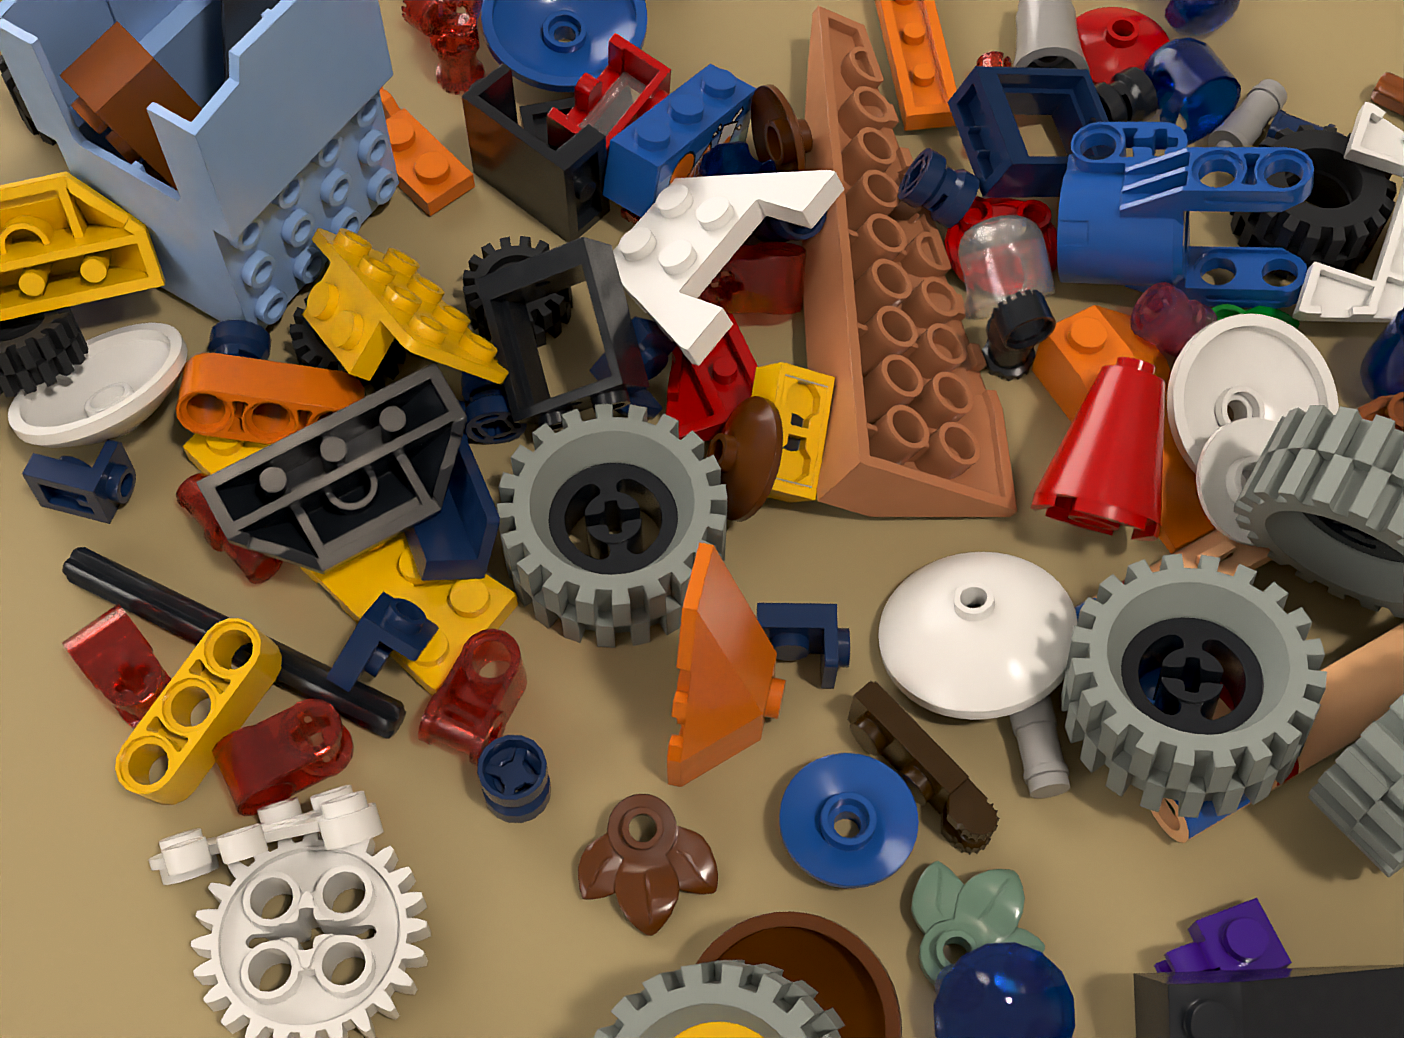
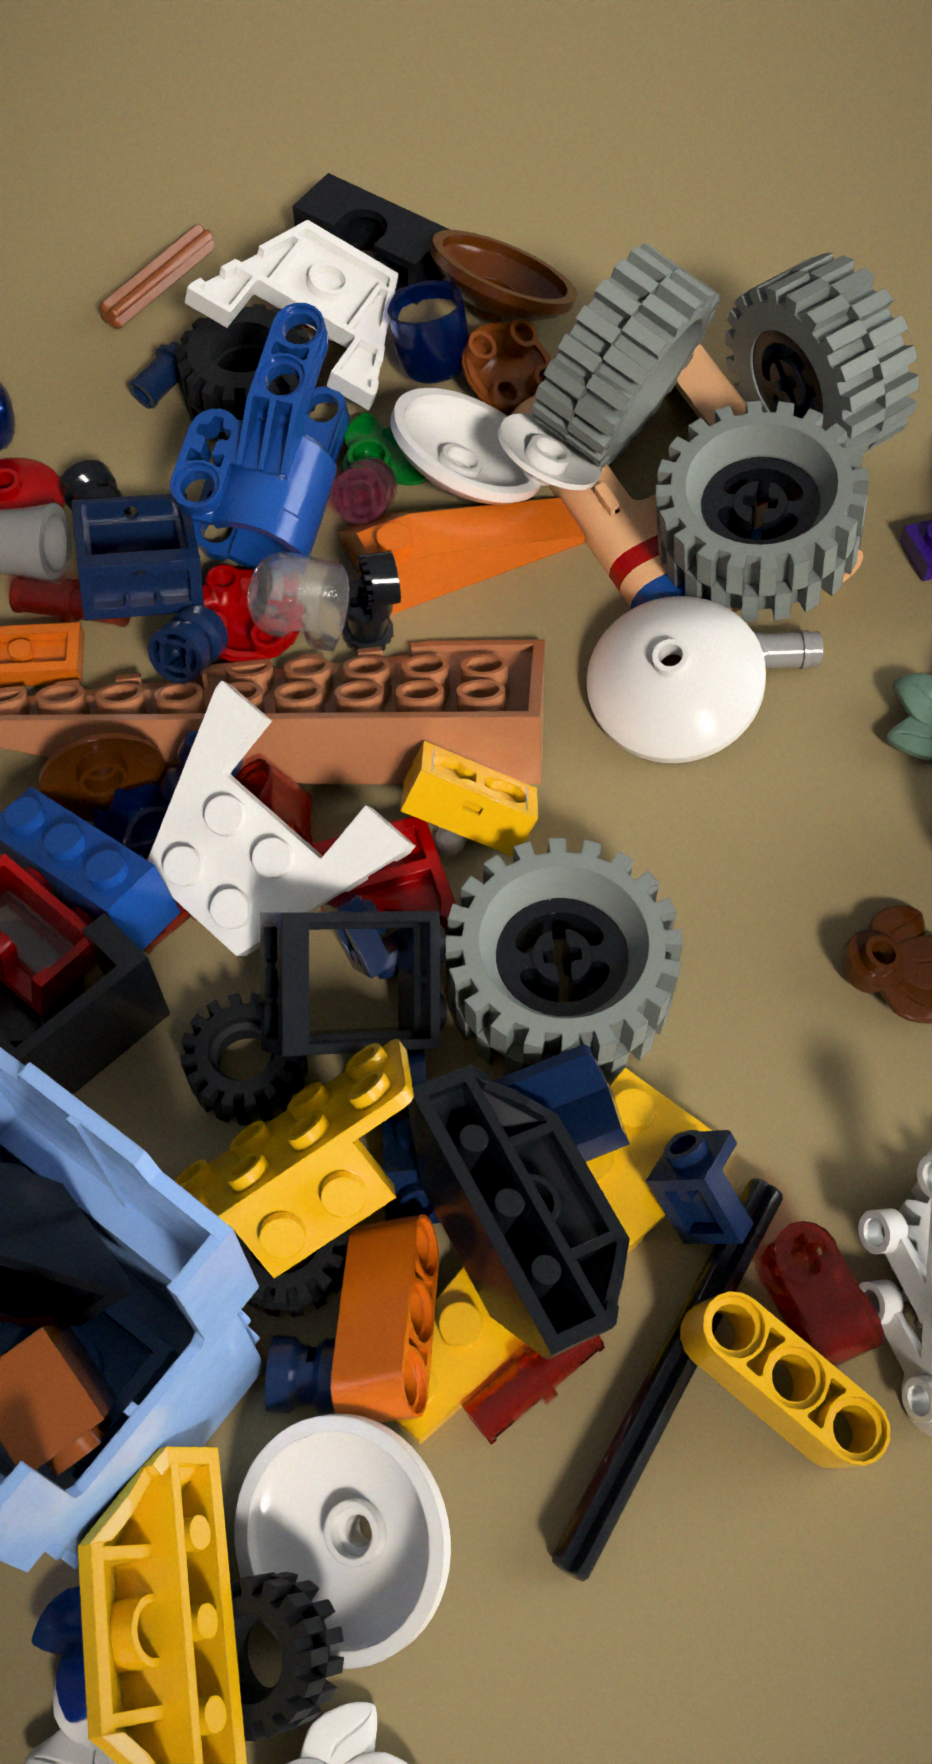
camera: 85 degrees left, 0 degrees up
(80, 489) = (474, 1567): dark blue bracket -> none
(119, 663) = (706, 1495): clear red piece -> none
(473, 708) = (752, 1103): clear red piece -> none
(513, 763) = (840, 1054): dark blue wheel -> none
(723, 676) = (762, 864): orange wedge -> none
(749, 455) = (487, 814): reddish brown dish -> none
(805, 630) = (679, 802): dark blue bracket -> none
(855, 790) = (862, 772): blue dish -> none
(926, 768) = (806, 731): dark brown hinge -> none
(1111, 456) = (527, 539): red cone -> none
(1192, 83) = (89, 432): clear blue helmet -> none
(1251, 117) = (136, 414): light grey piece -> none

